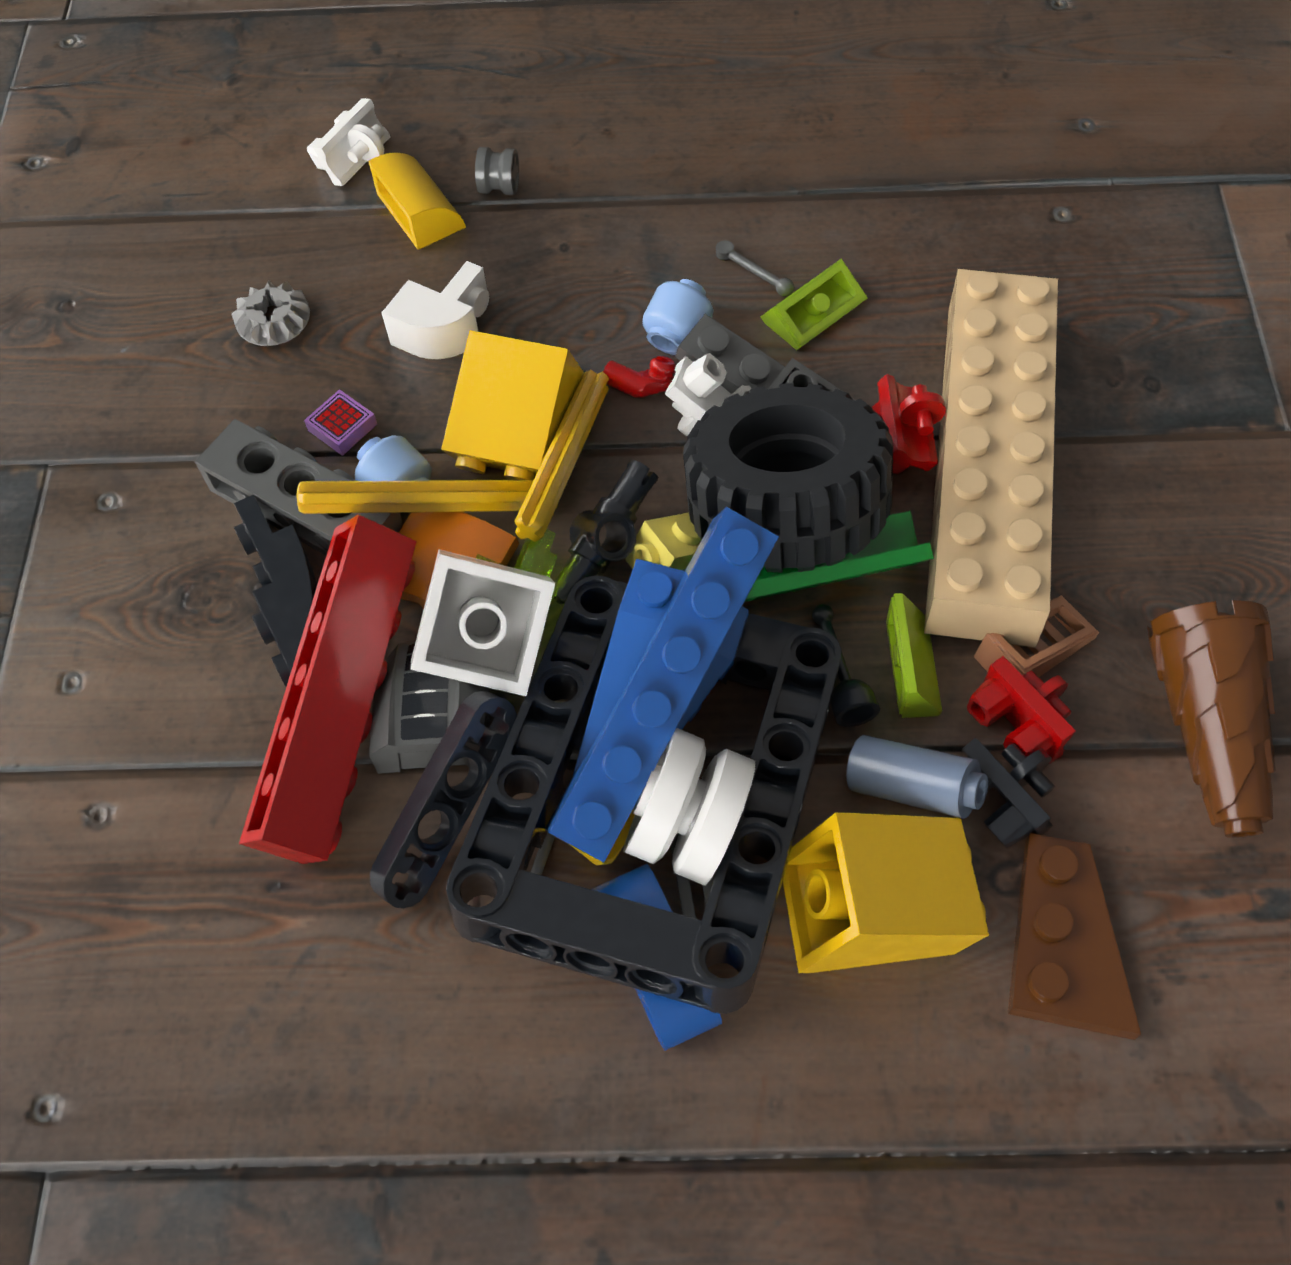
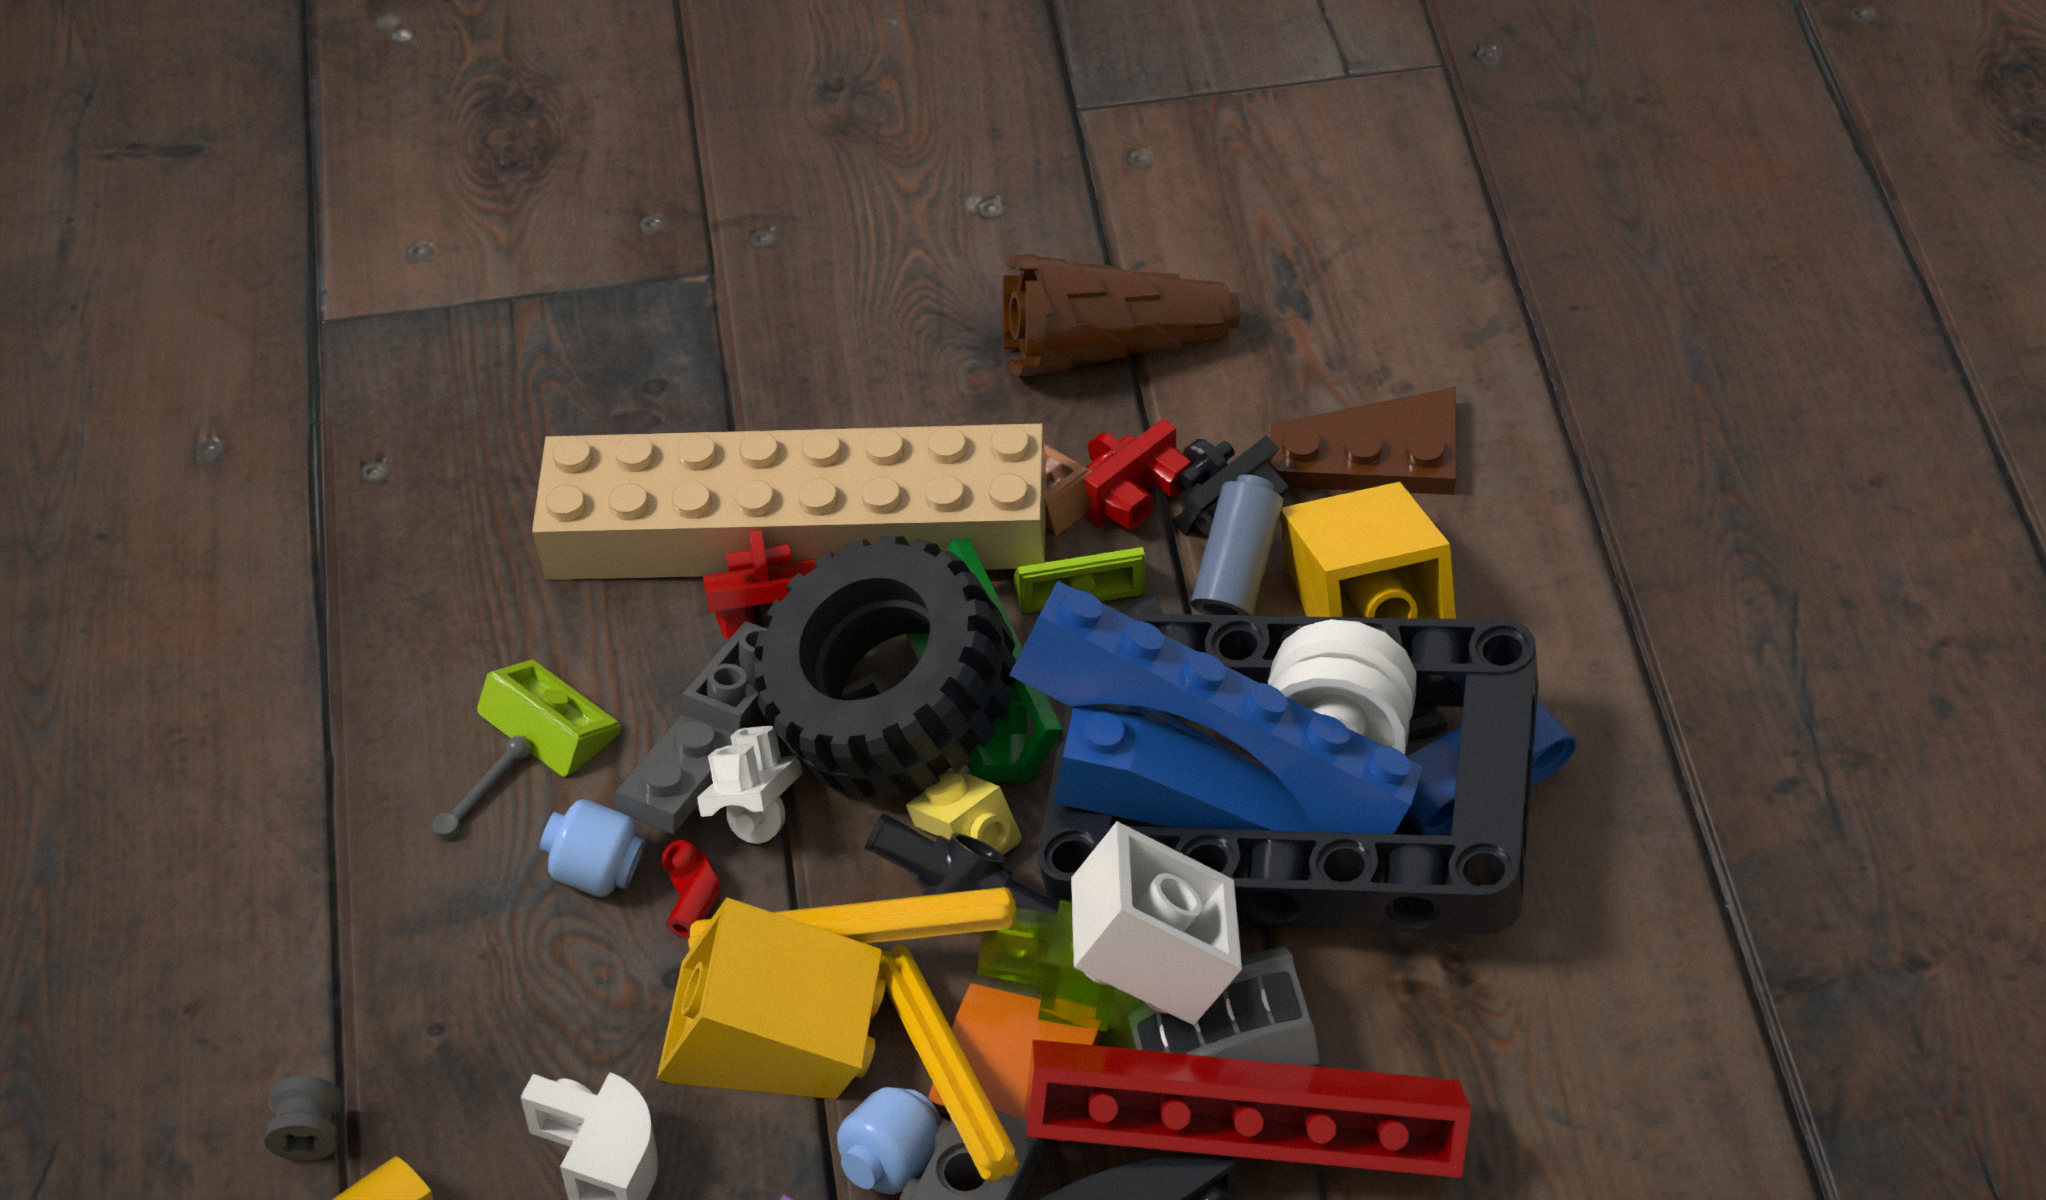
camera: 100 degrees left, 10 degrees down
(451, 801) = (1361, 967): black beam -> none

